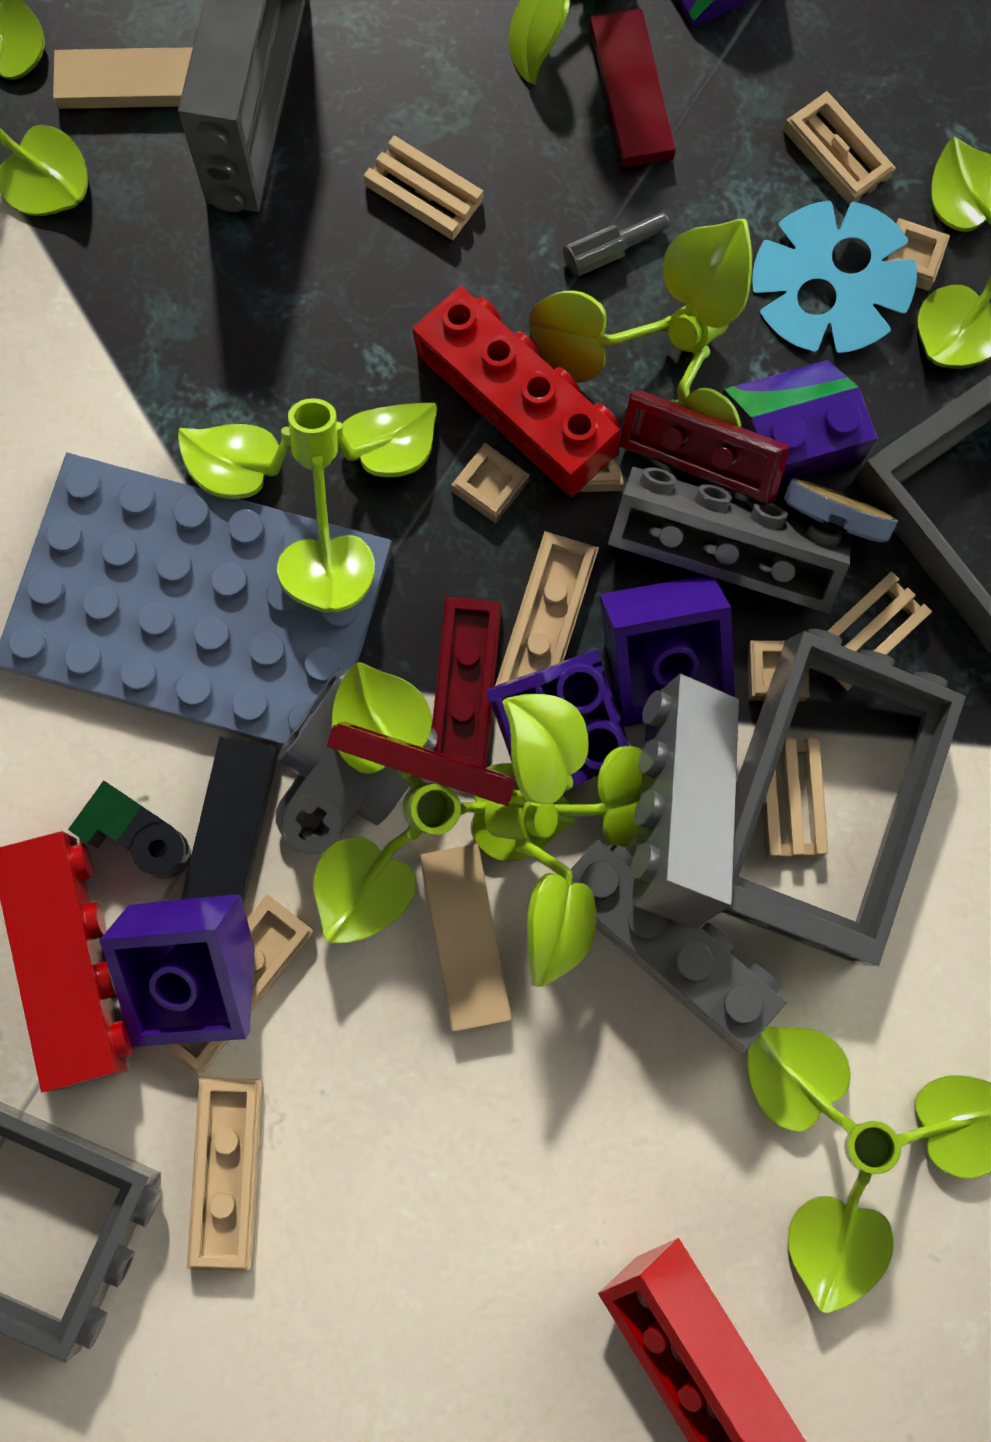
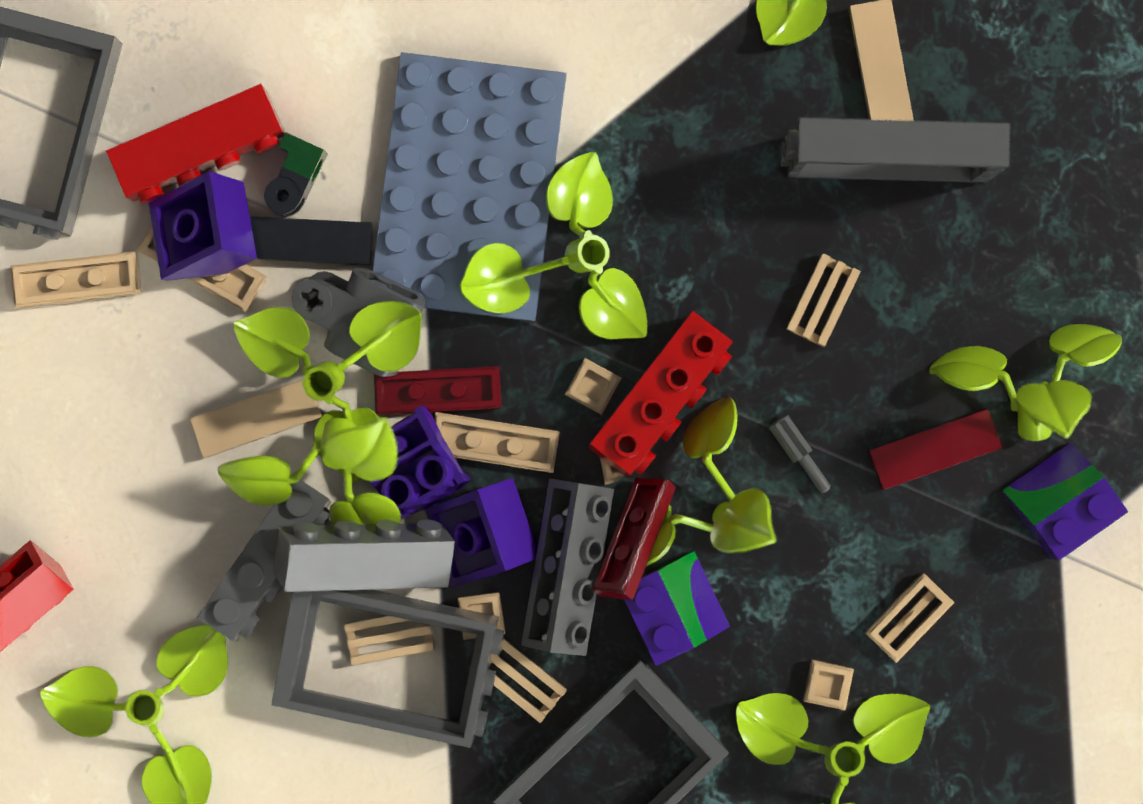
camera: 90 degrees right, 10 degrees up
(422, 762) = (353, 367): dark red tile -> none
(838, 508) = (602, 646): sand blue tile -> none
(853, 316) = (767, 642): medium azure piece -> none

